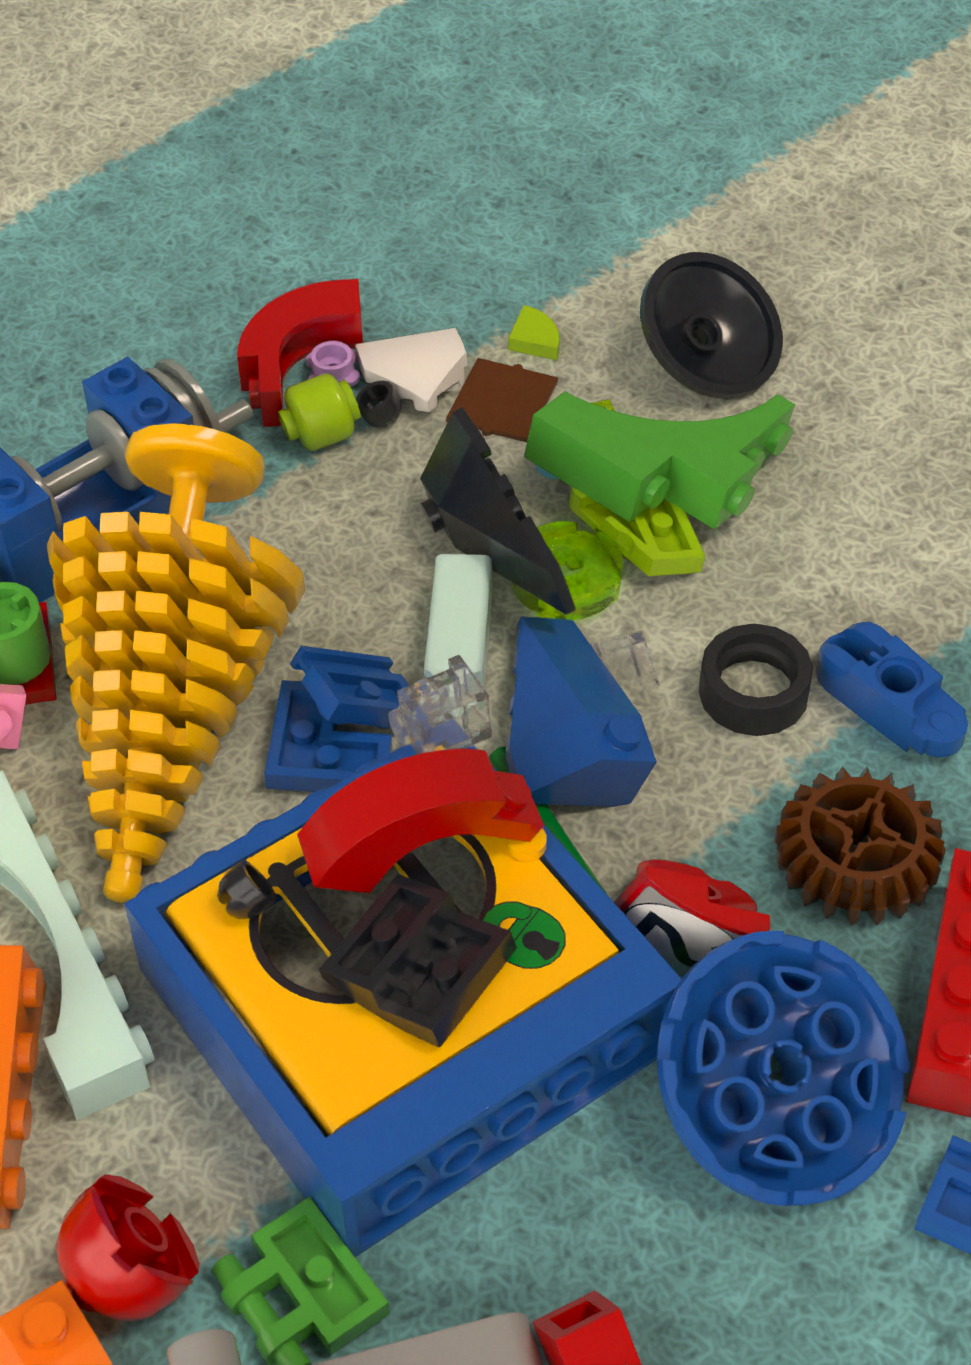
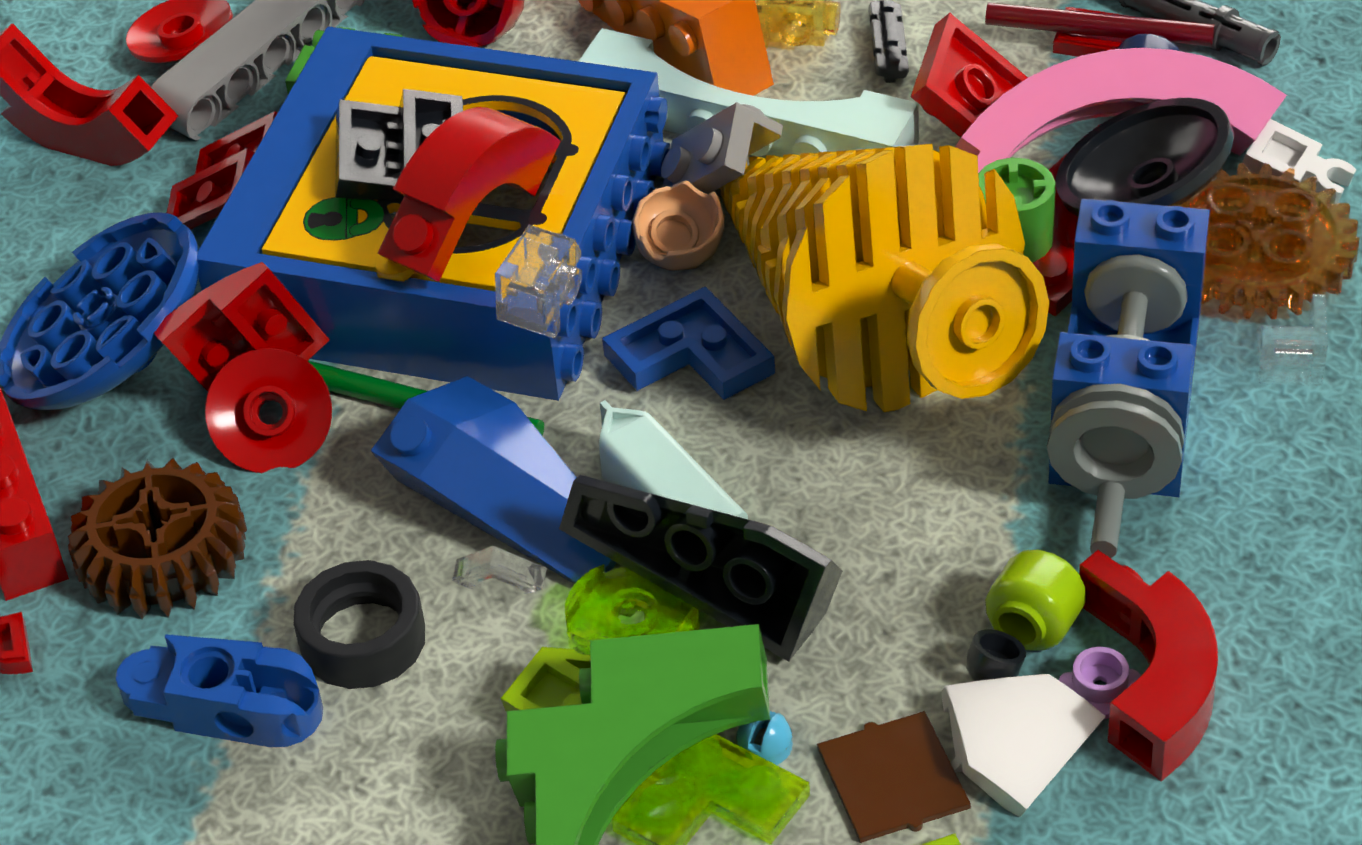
camera: 145 degrees right, 5 degrees down
(125, 853) = (718, 147): none -> light grey bracket
(215, 822) = (678, 226): none -> light nougat hair
(245, 891) = (555, 105): black hinge -> none
(350, 685) = (696, 374): blue plate -> none
(547, 1184) = (216, 174): none -> red slope

